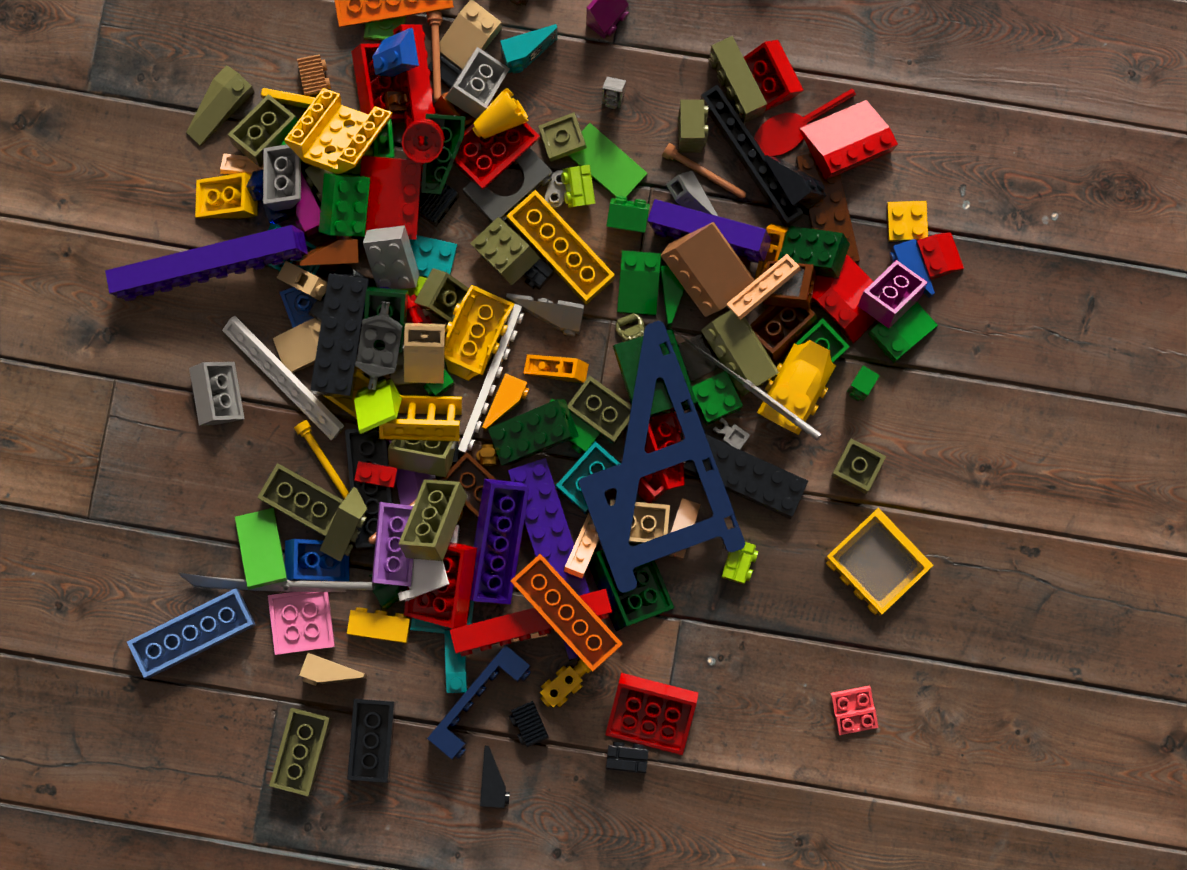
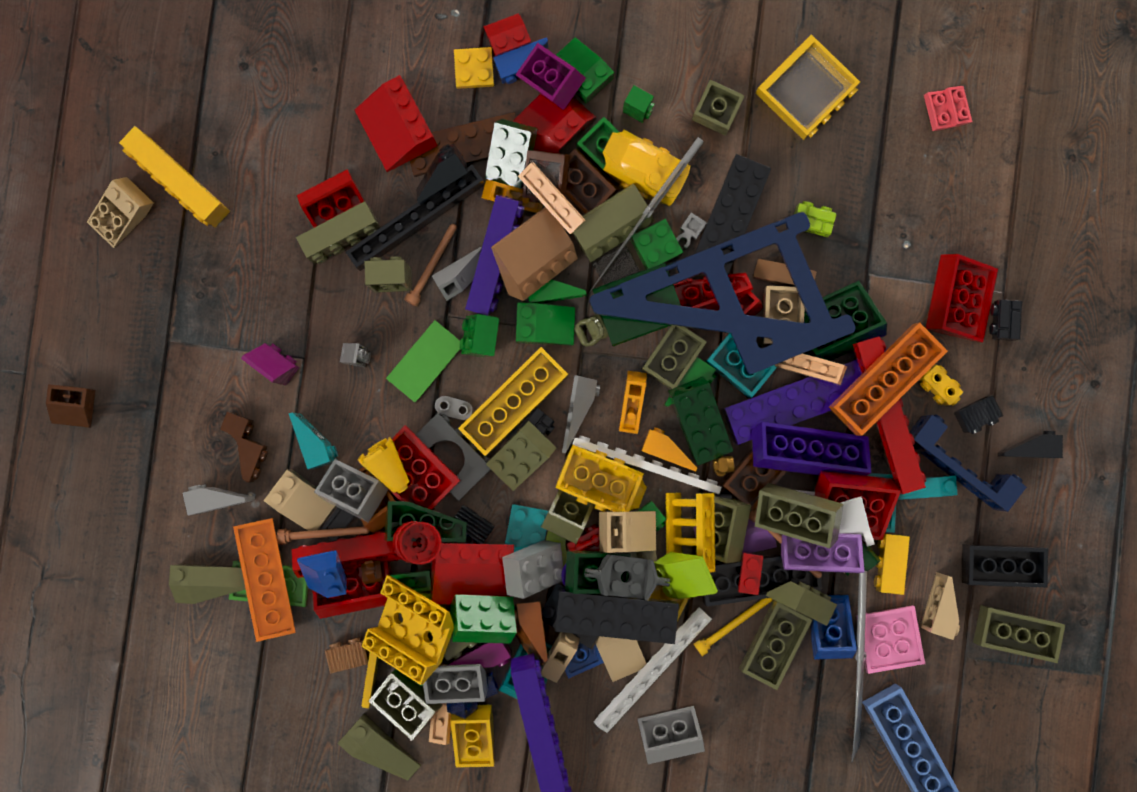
camera: 90 degrees left, 5 degrees up
(261, 548) = (825, 683): bright green tile -> none
(562, 136) = (401, 404): olive plate -> none
(578, 186) = (451, 386): lime brick -> none
(782, 131) = (387, 188): red piece -> none

